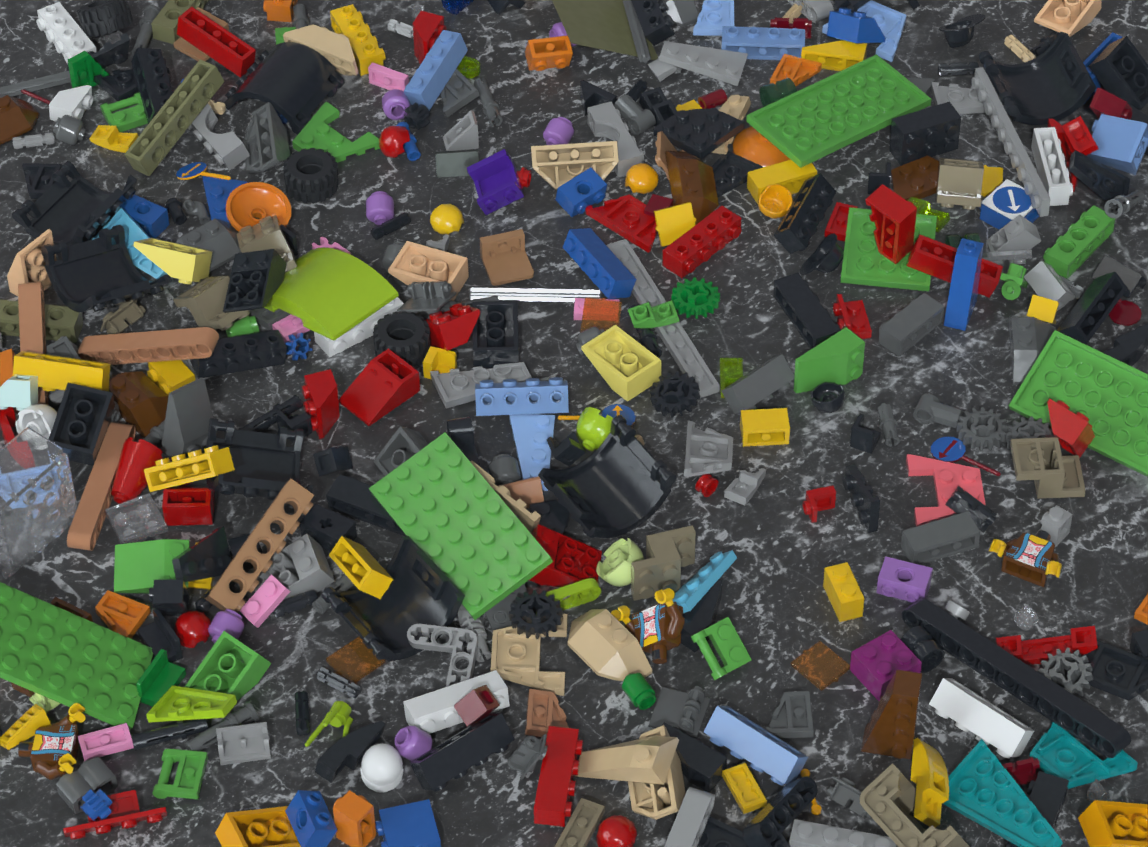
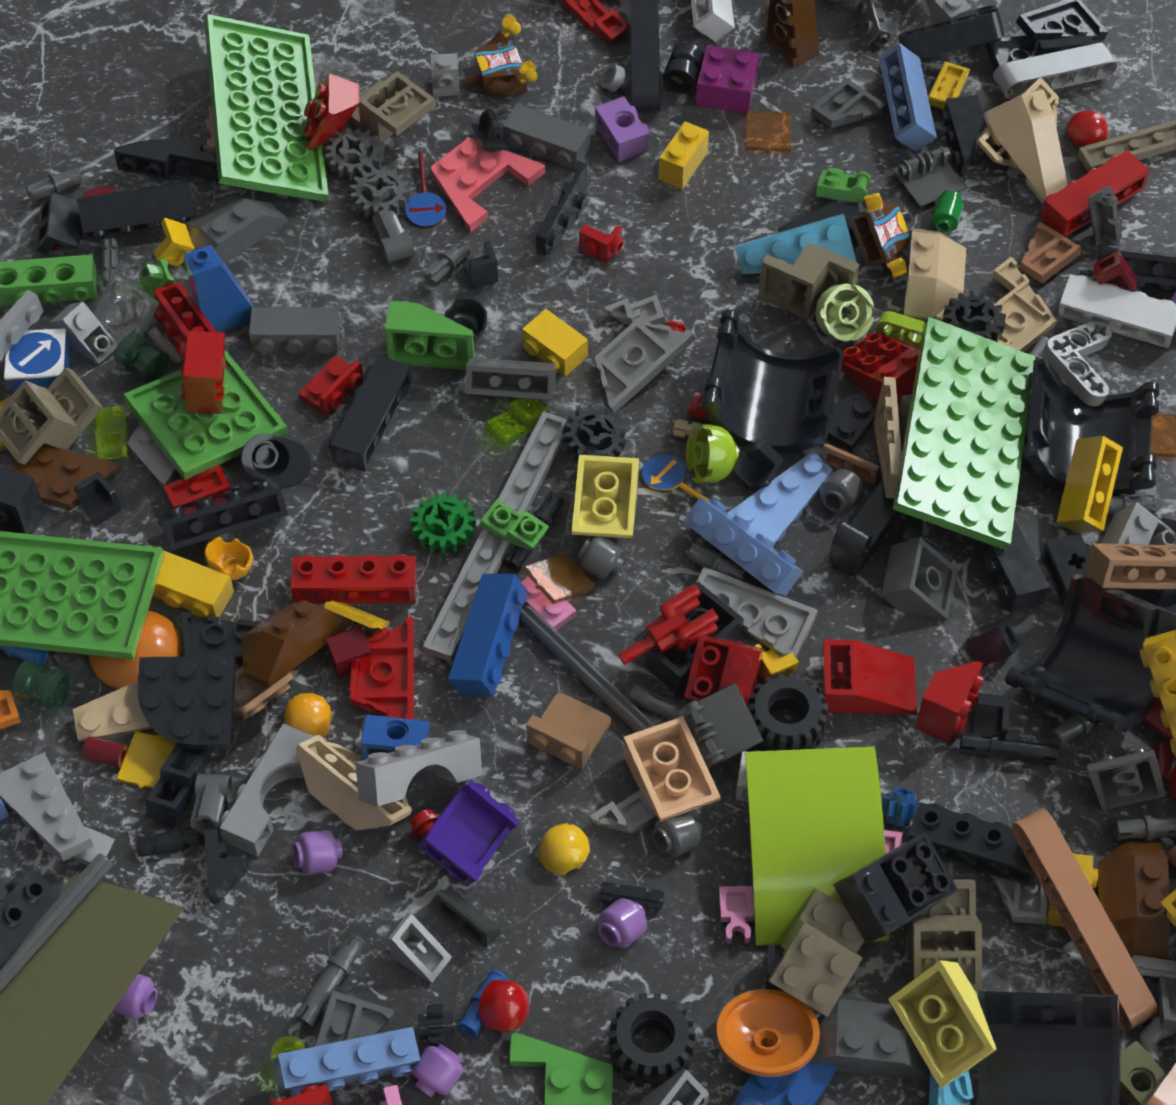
camera: 135 degrees left, 10 degrees up
(497, 307) = (673, 627): none -> red plant
(543, 195) = (386, 776): none -> light grey arch
(548, 53) = (188, 974): orange brick -> none
(1049, 284) = (131, 255): light grey hinge -> none

